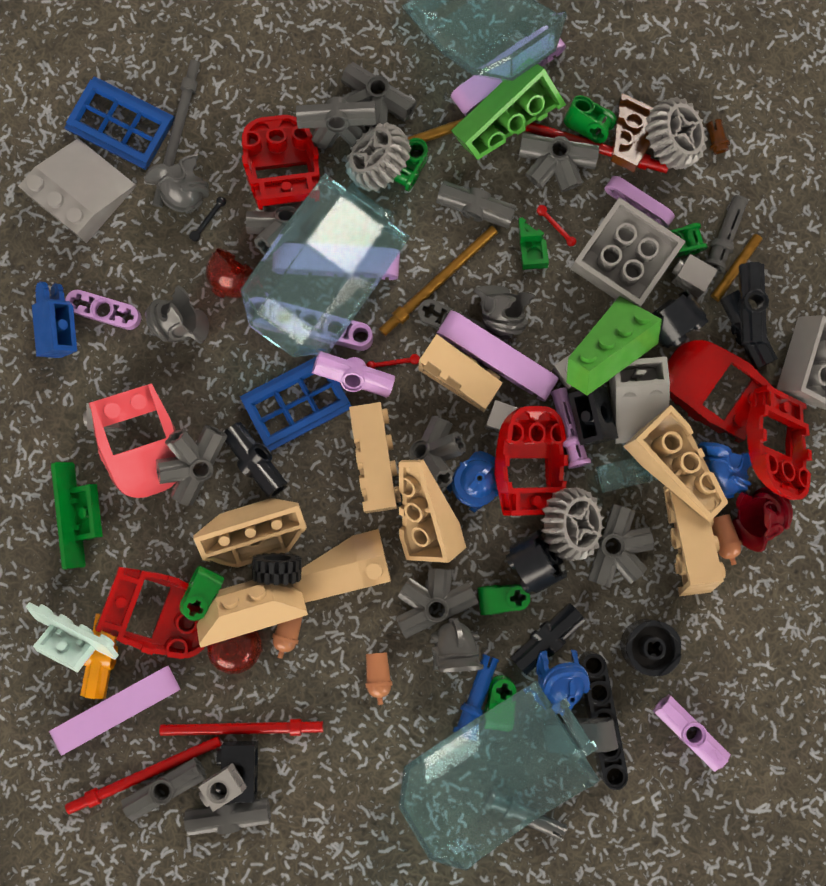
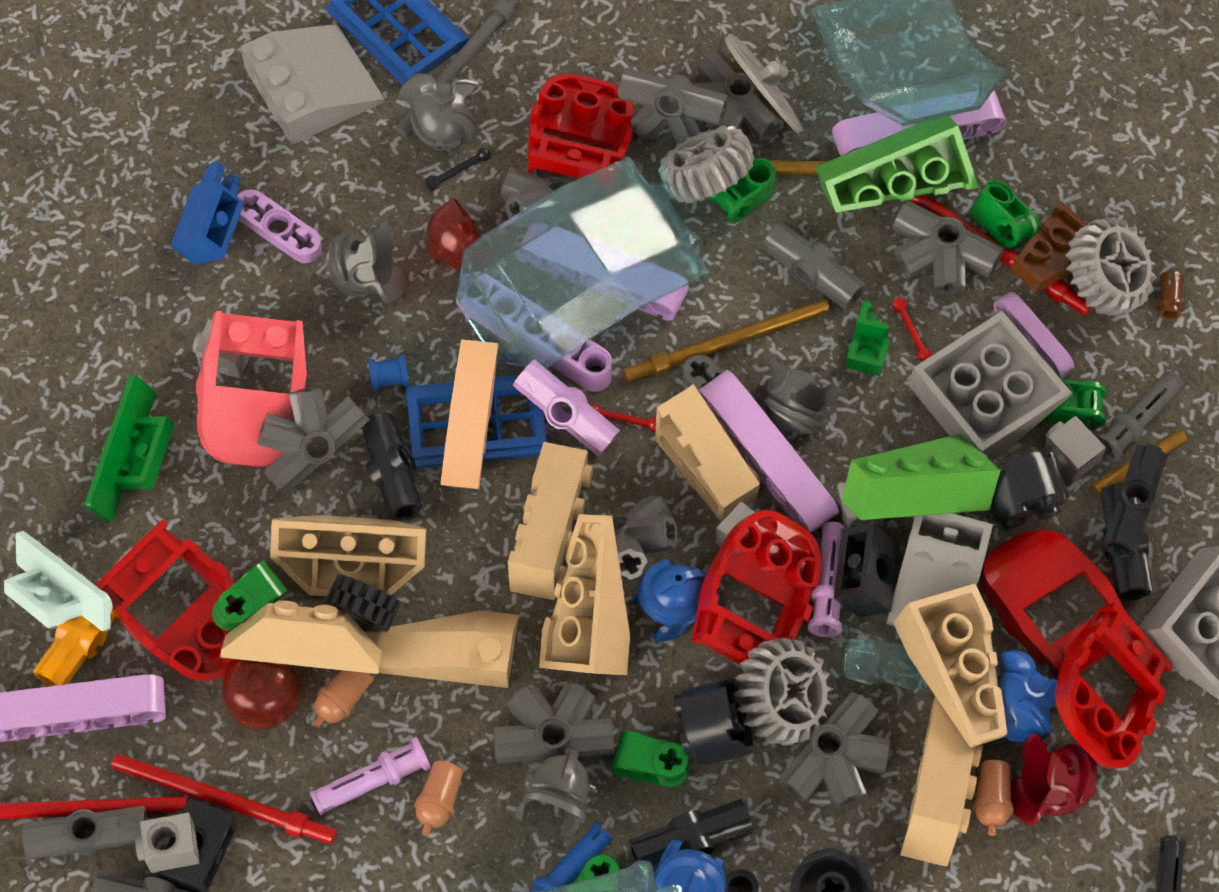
camera: 20 degrees right, 20 degrees down
(224, 391) = (388, 372): none -> blue bush
(292, 405) = (469, 414): none -> light nougat slope
(338, 669) = (387, 769): none -> lavender pin
(391, 75) = (764, 79): none -> light grey shield

